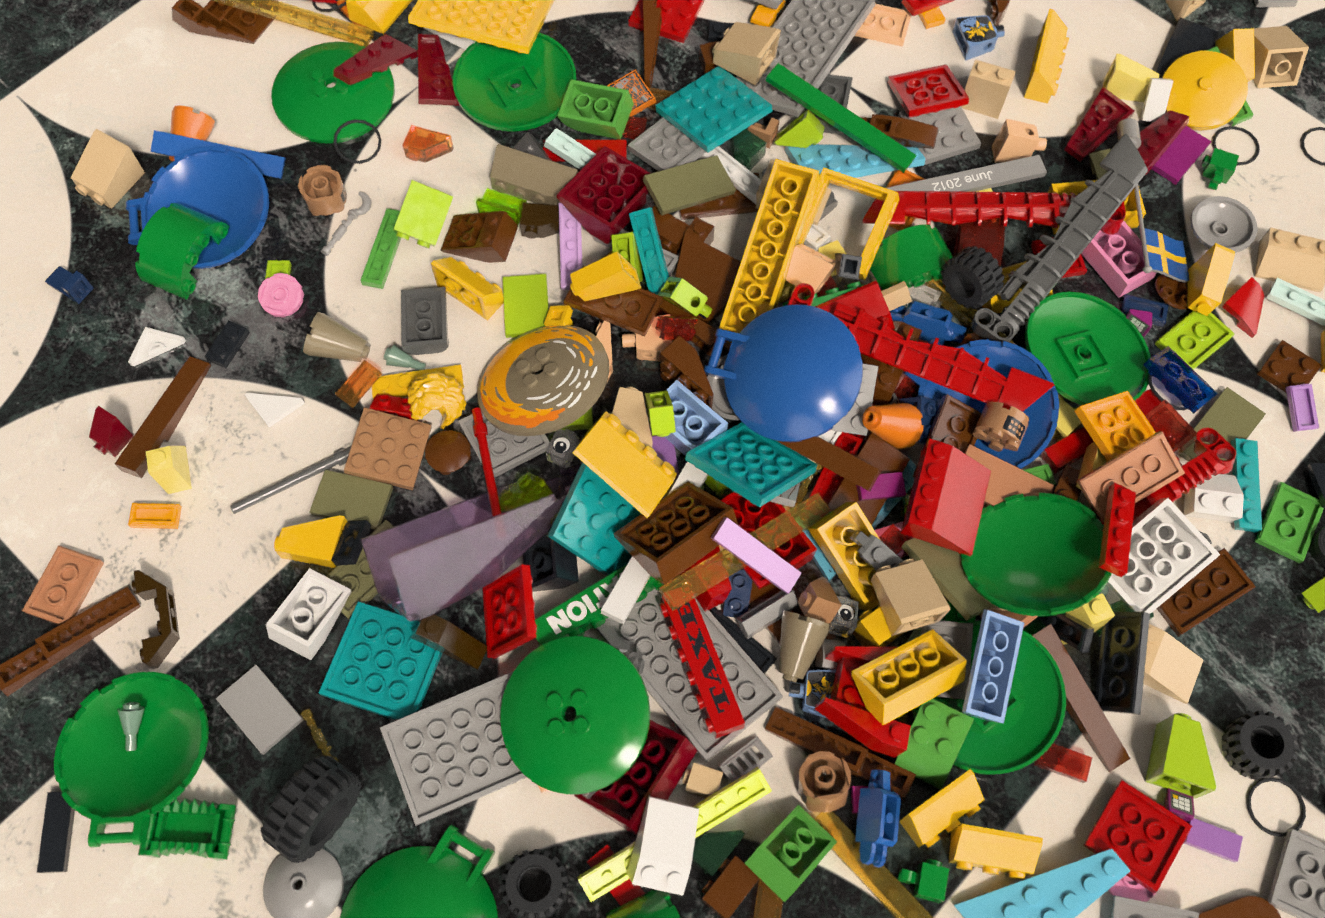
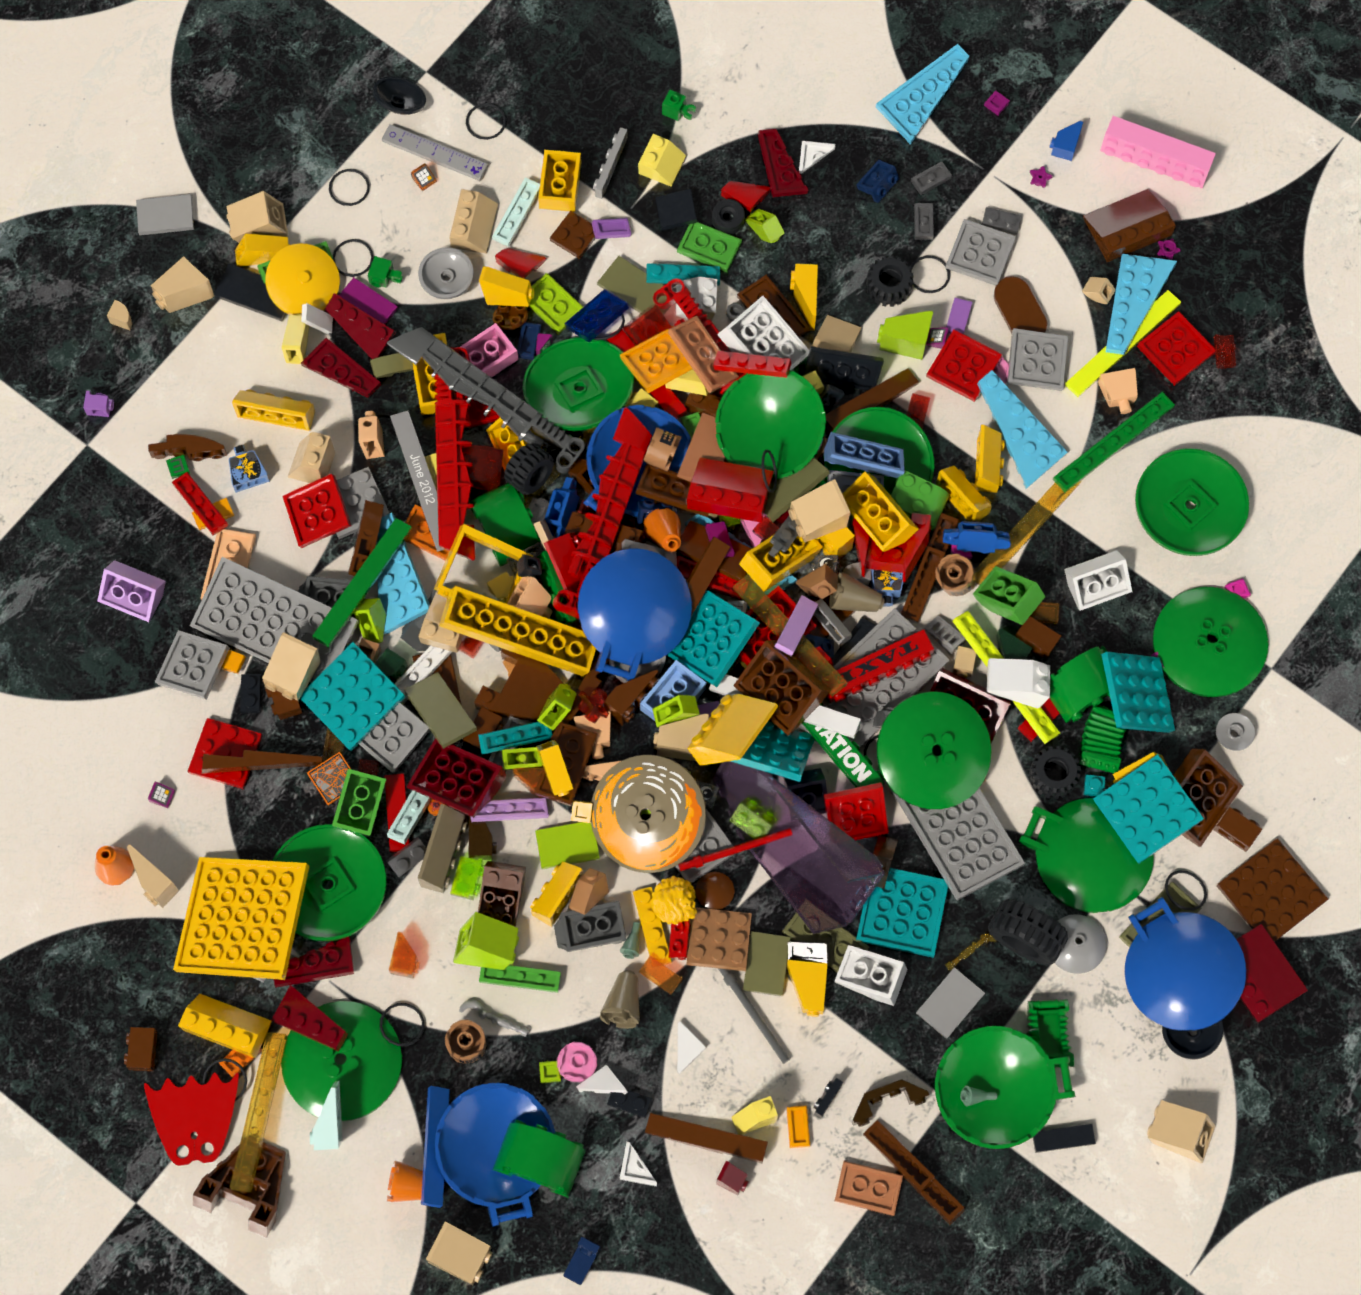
camera: 95 degrees left, 5 degrees up
(170, 542) = (831, 1091): none -> black plate
(251, 319) = (602, 1082): none -> white tile
(264, 64) = (328, 1127): none -> light aqua slope
(463, 314) = (589, 891): none -> medium nougat slope
(929, 880) = (1014, 504): green brick -> none
(968, 524) = (775, 470): none -> black piece
(1159, 251) = (476, 322): flag -> none
(1239, 630) = (804, 284): none -> yellow slope

